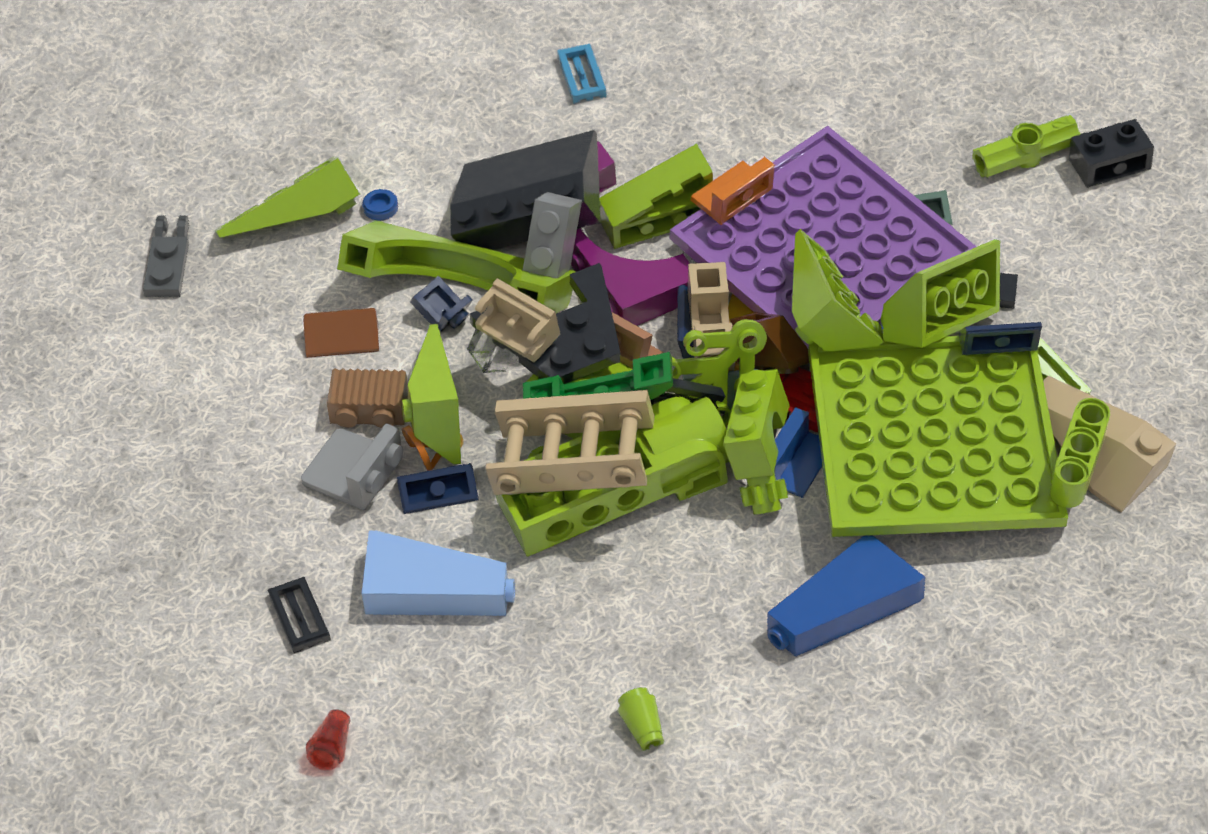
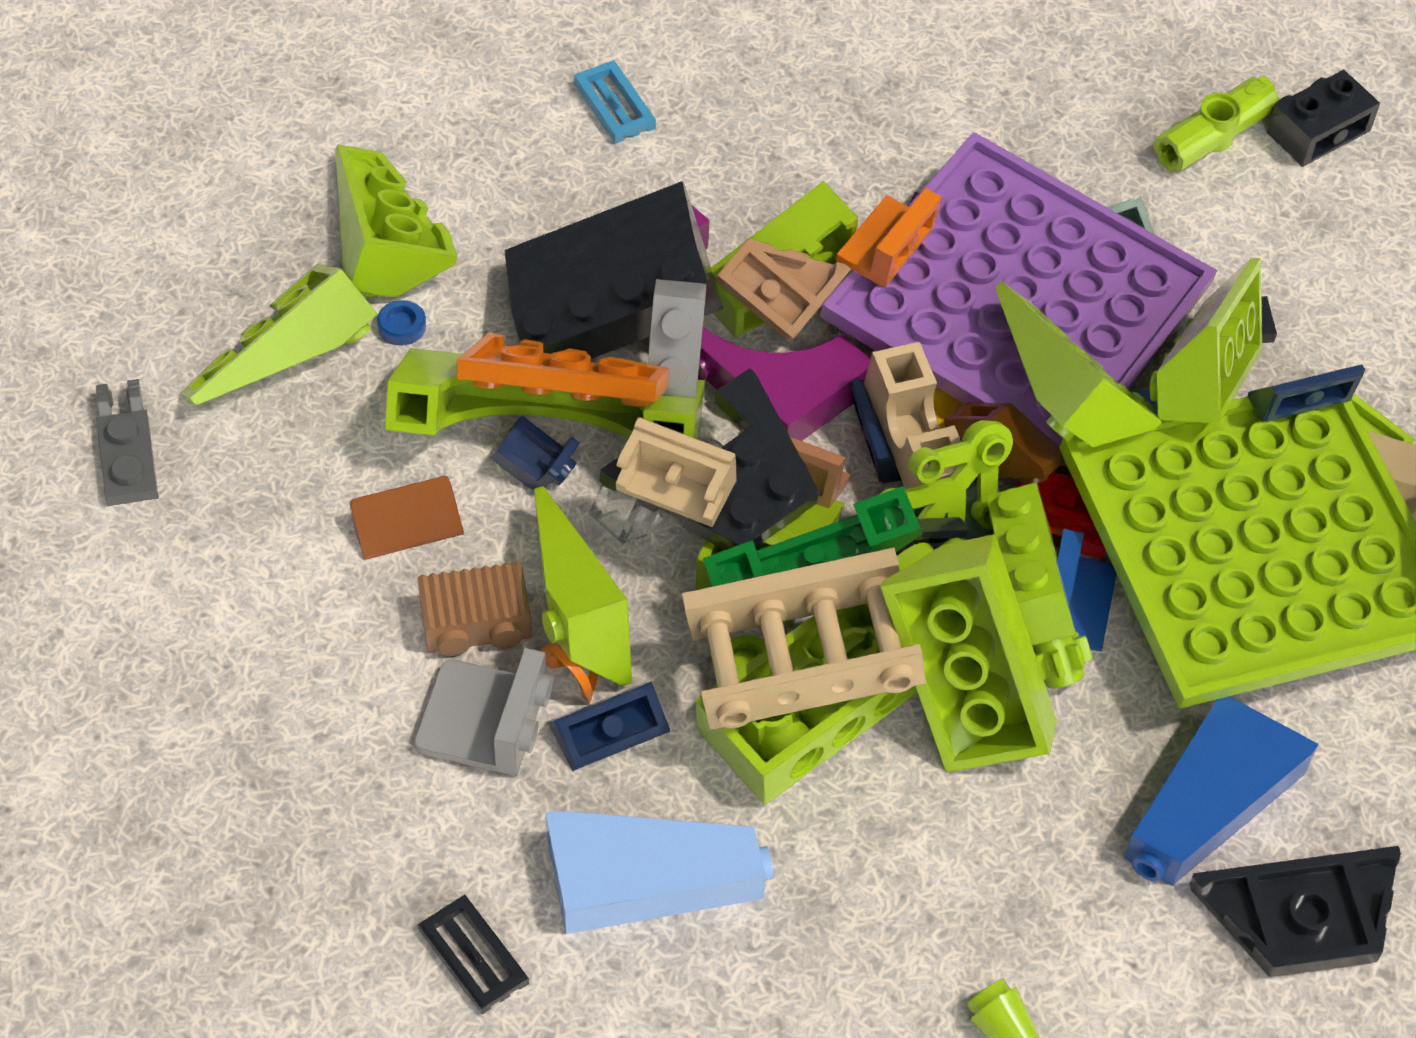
camera: 20 degrees left, 5 degrees up
(387, 137) = (383, 231): none -> lime wedge
(453, 244) = (525, 365): none -> orange wing
(644, 211) = (780, 285): none -> medium nougat wing
(687, 474) = (978, 660): none -> lime slope
(883, 686) = (1305, 909): none -> black wing

